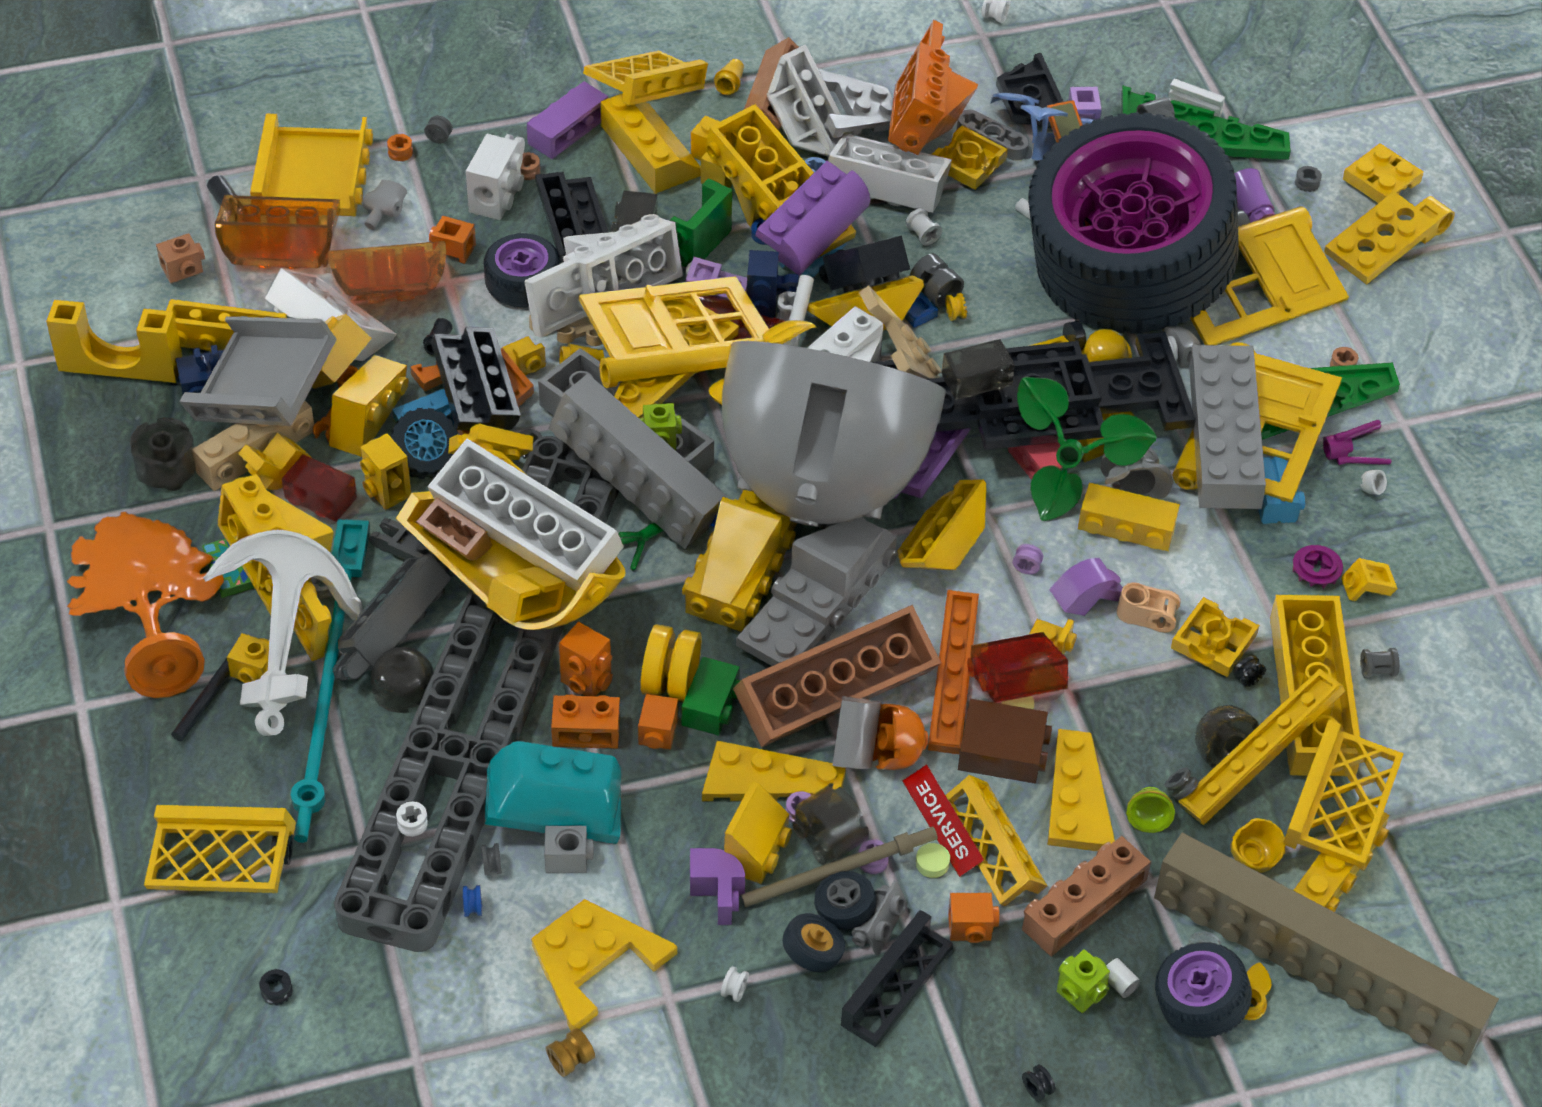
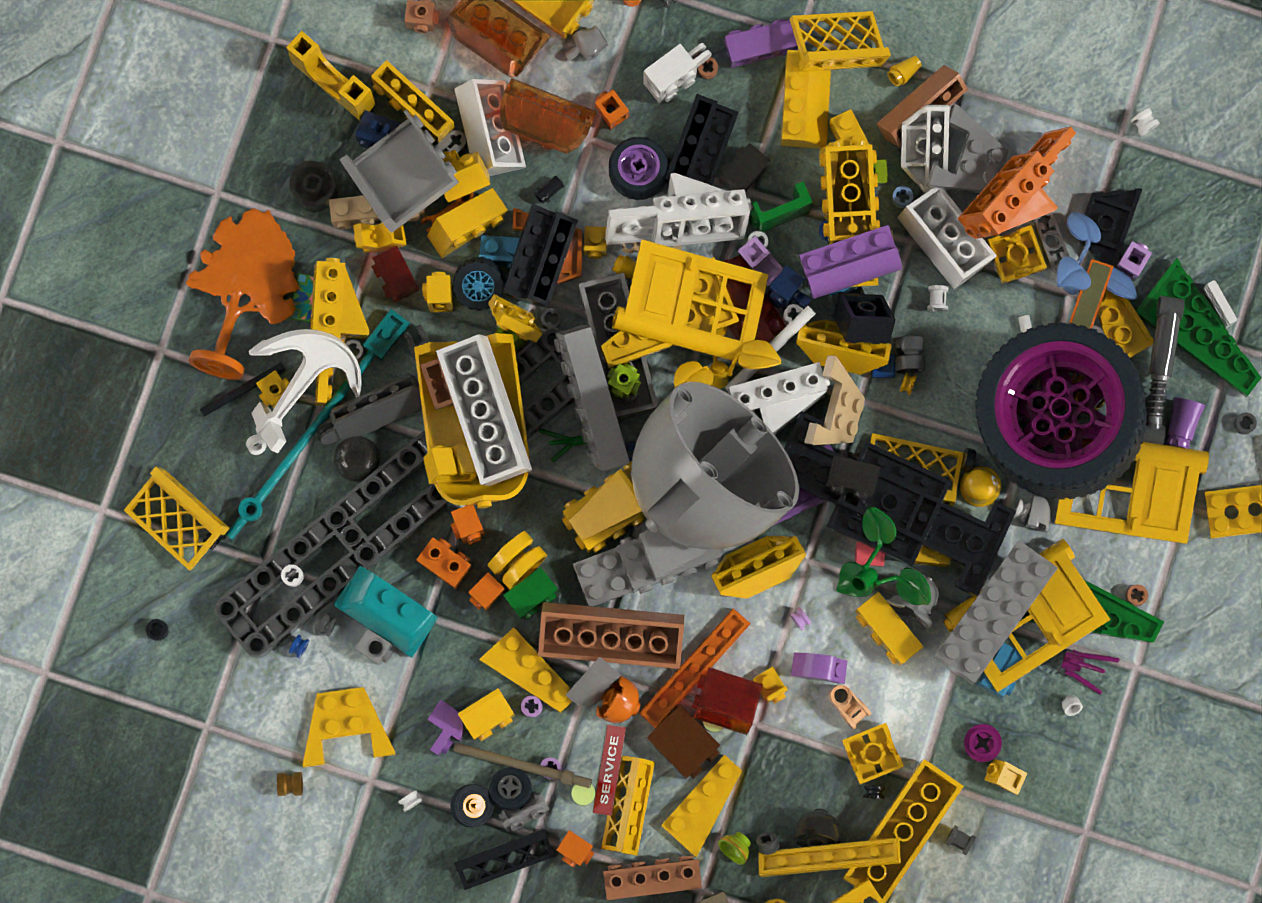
camera: 35 degrees right, 30 degrees up
(830, 824) = (533, 736): clear smoke brick -> none

